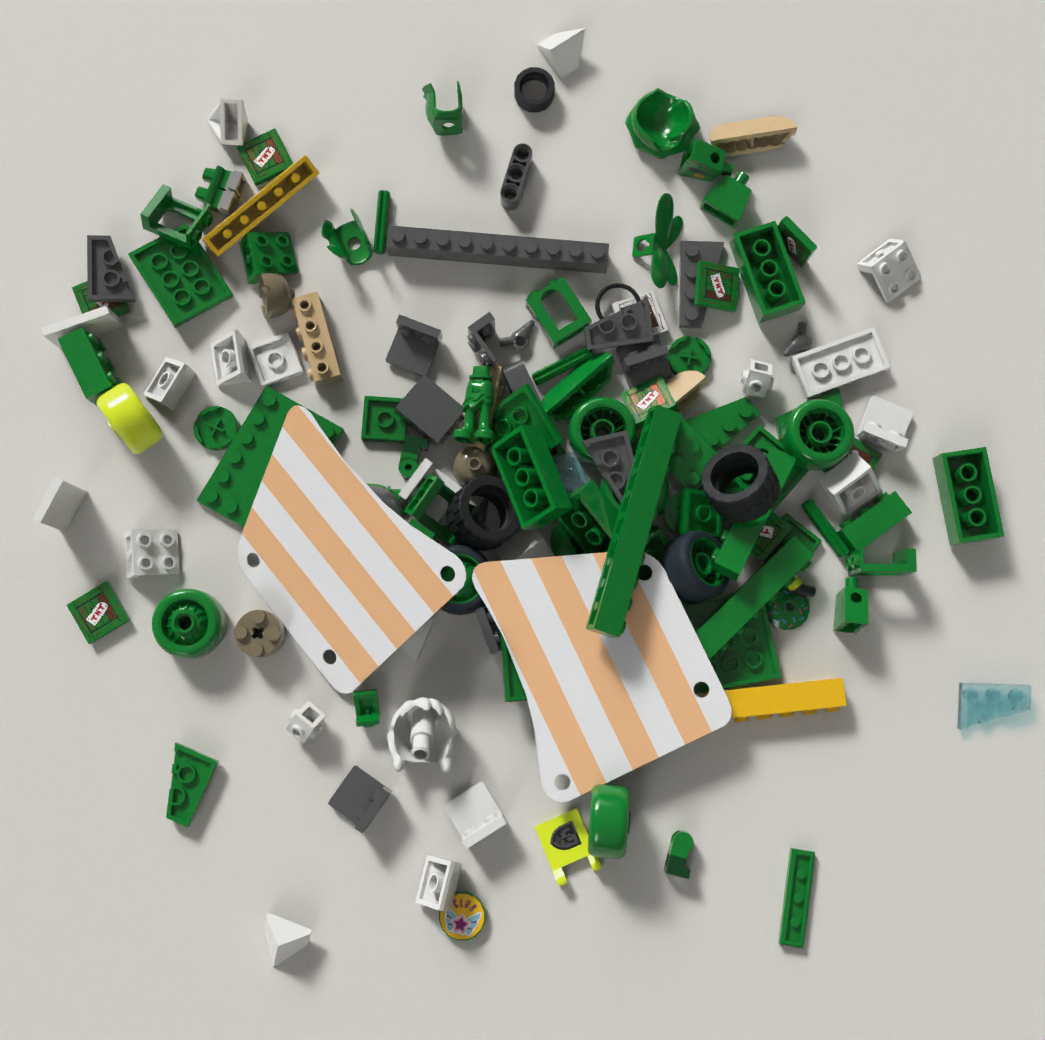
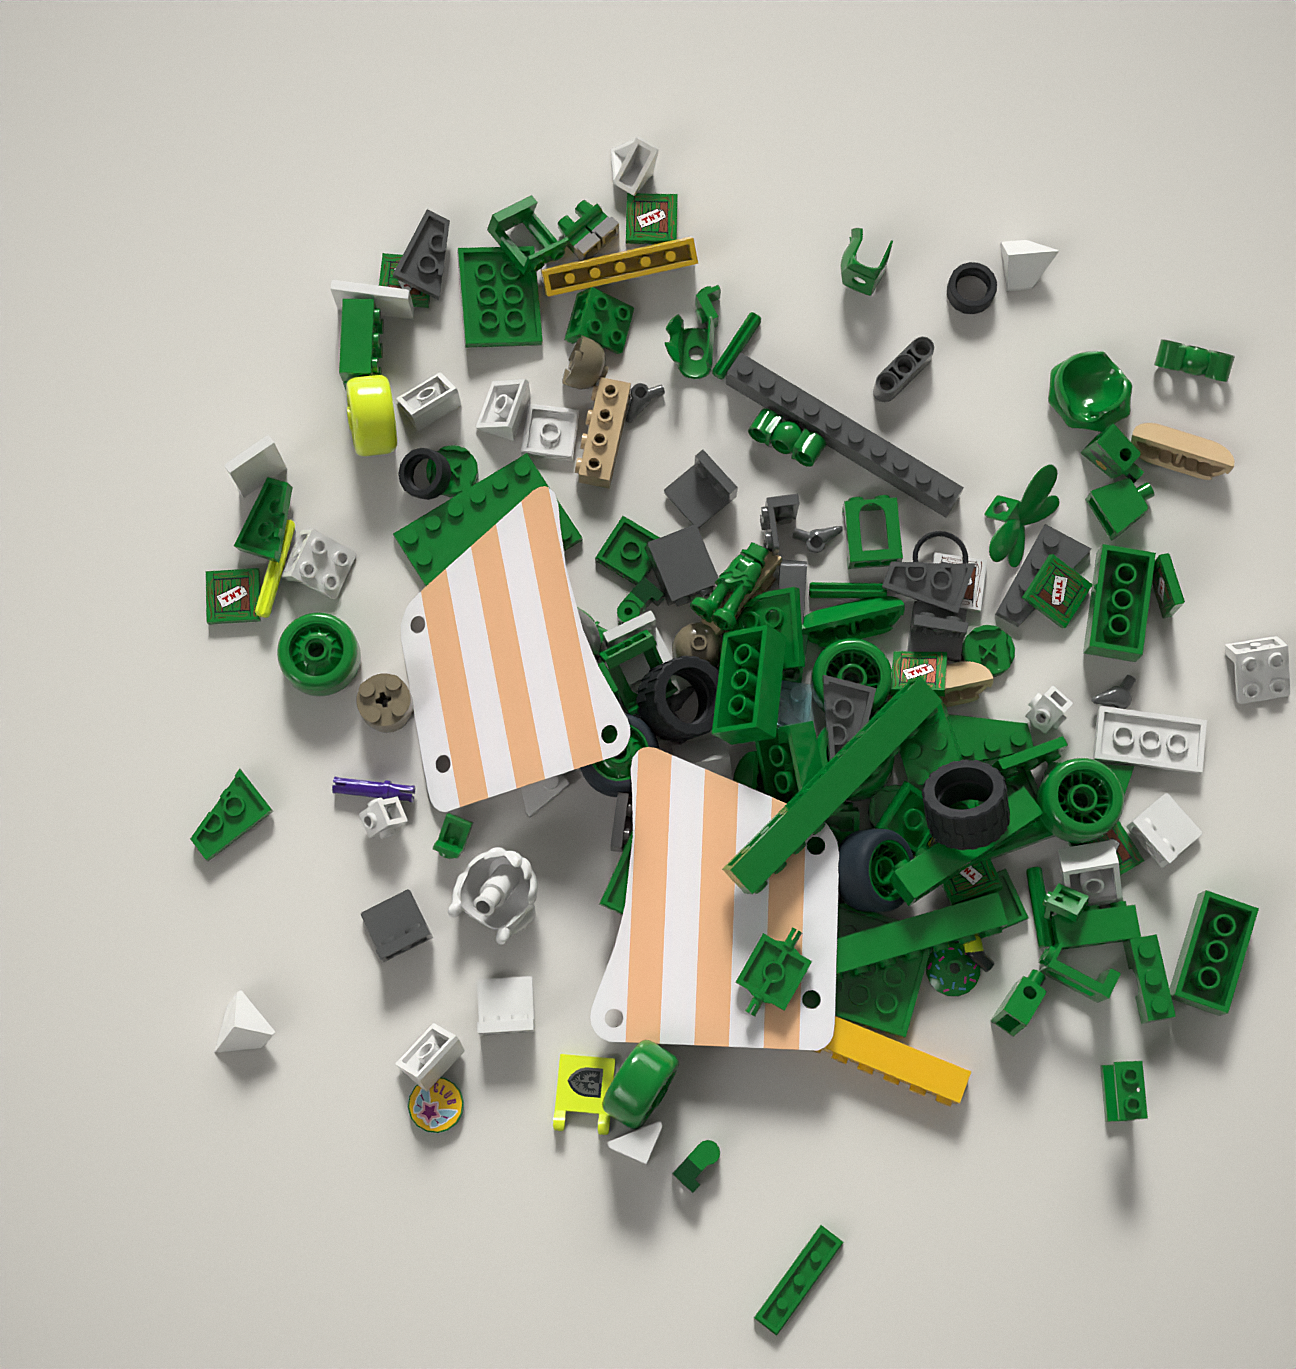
camera: 30 degrees right, 5 degrees down
(93, 541) = (267, 521): none -> green wing
(119, 574) = (273, 575): none -> neon yellow axle
(181, 446) = (407, 469): none -> black tyre
(296, 700) = (373, 789): none -> dark purple pin
(331, 299) = (641, 398): none -> dark grey animal
(340, 202) = (704, 305): none -> green bracket
(456, 273) = (787, 437): none -> green piece
(630, 867) = (637, 1144): none -> white slope
(663, 685) = (773, 972): none -> green plate
(726, 62) = (1194, 360): none -> green piece
(765, 423) = (1030, 758): none -> green wing
(845, 516) = (1065, 902): none -> green bracket
(942, 550) = (1153, 995): none -> green arch
(957, 634) = (1120, 1091): none -> green panel
(988, 701) = (1120, 1185): clear light blue wing -> none

